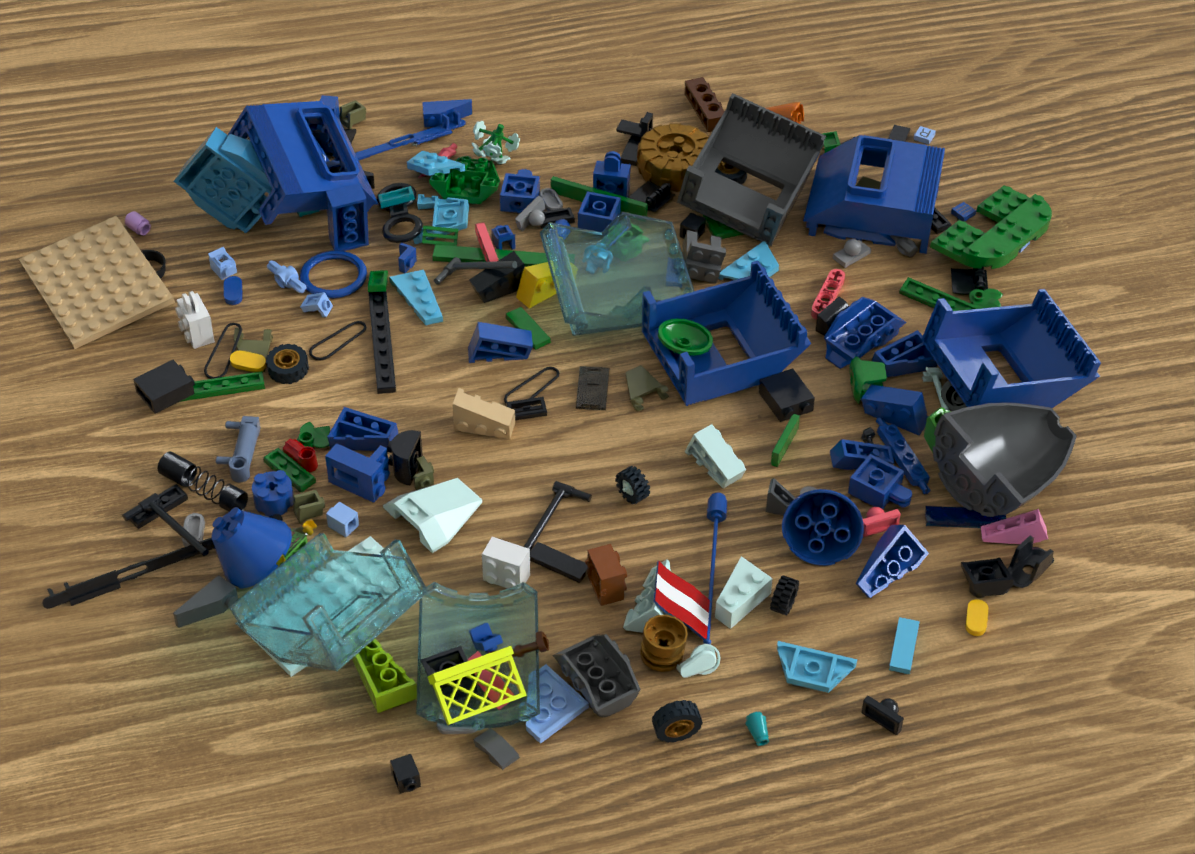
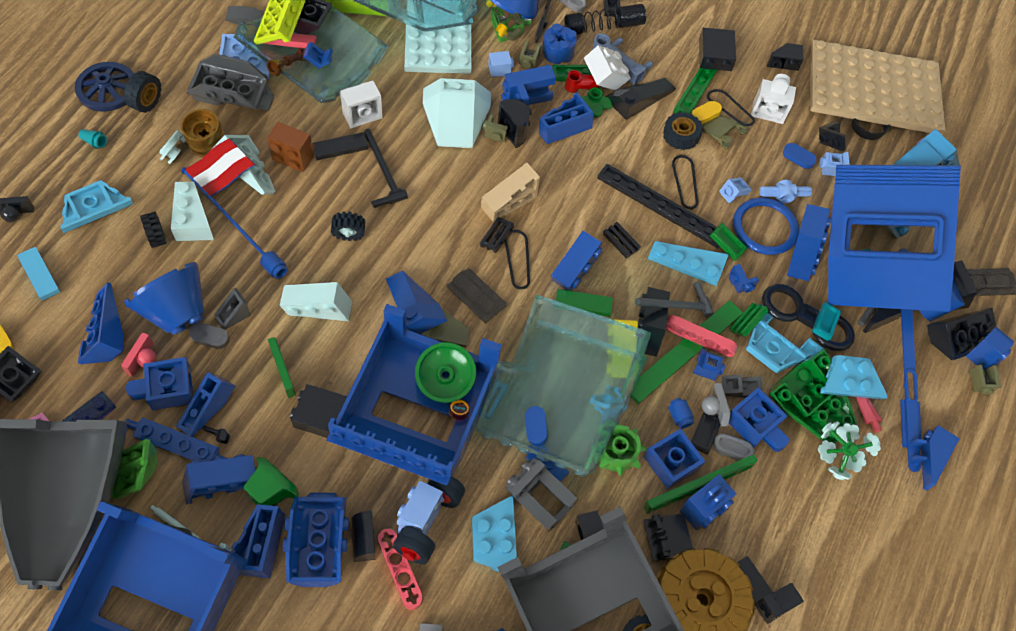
camera: 125 degrees right, 15 degrees up
(118, 346) = (787, 57): none -> black slope
(199, 276) = (831, 136): none -> black bracket
(274, 434) = (607, 67): none -> white brick
(277, 412) = (635, 98): none -> black wedge
(446, 331) = (624, 238): none -> black tile
(496, 216) = (740, 387): none -> dark grey slope
(648, 401) = (421, 309): none -> blue wedge
(662, 279) = (536, 426): none -> blue tile
(698, 774) = (104, 83): none -> dark blue wheel
(700, 318) = (459, 409): none -> clear red tile
(800, 286) = (418, 515): none -> brick

